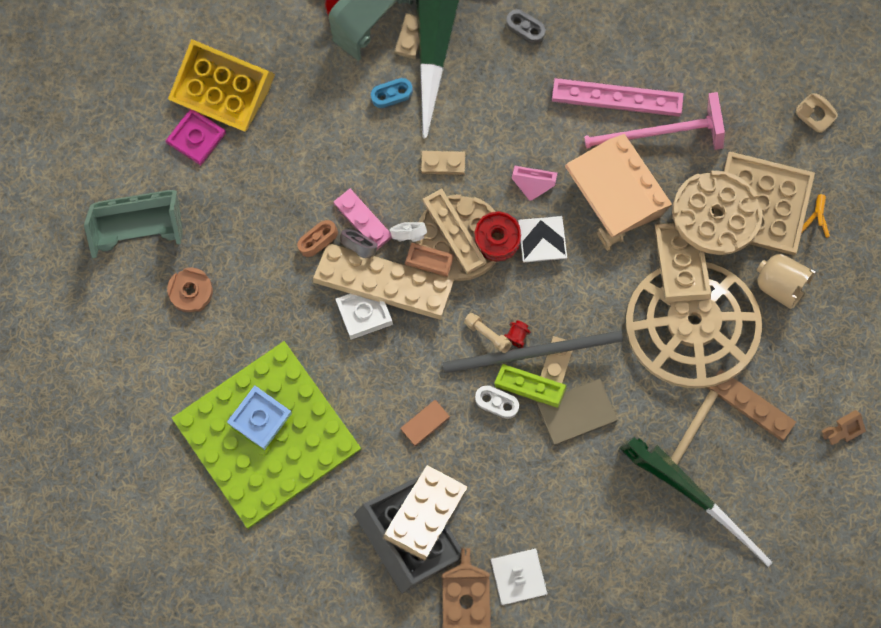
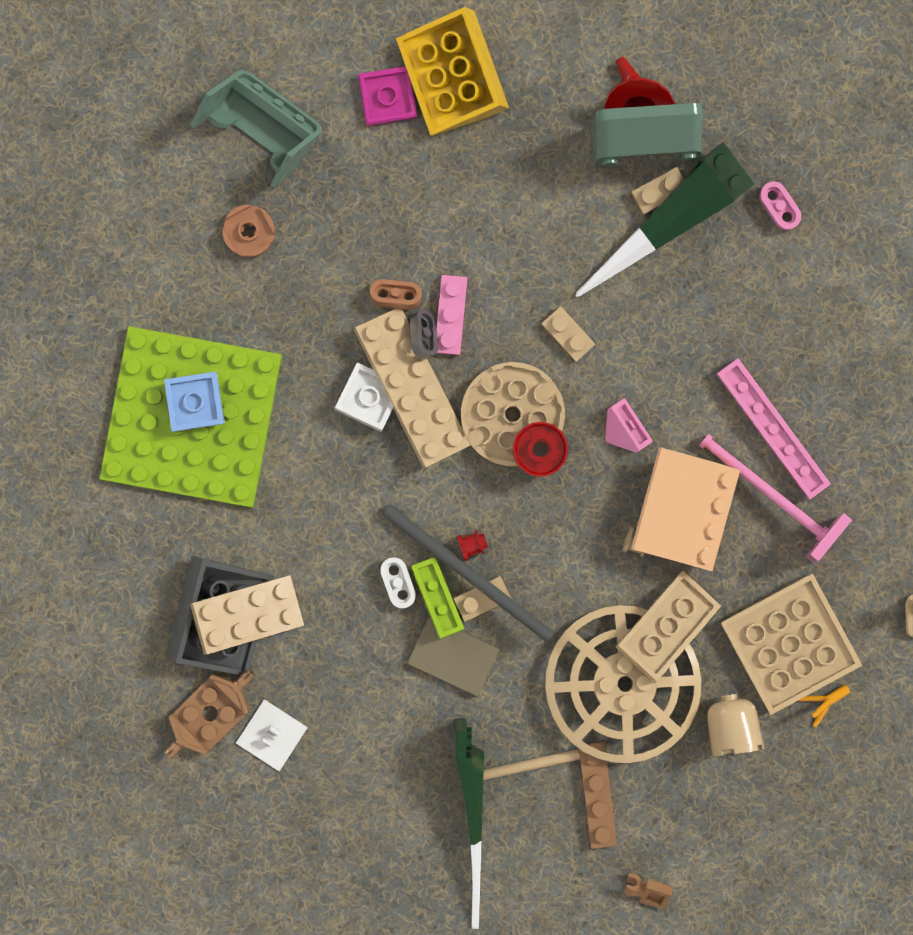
camera: 45 degrees right, 15 degrees up
(390, 91) = (589, 226): dark azure plate -> none
(409, 230) = (473, 368): white plate -> none
(425, 423) = (324, 539): nougat tile -> none
(429, 259) = (466, 409): nougat tile -> none
(454, 231) = (510, 407): tan plate -> none
(500, 342) = (449, 539): tan bar -> none
(527, 25) = (768, 284): flat silver plate -> none
(542, 239) = (577, 487): piece -> none
(722, 233) = (767, 622): tan plate -> none

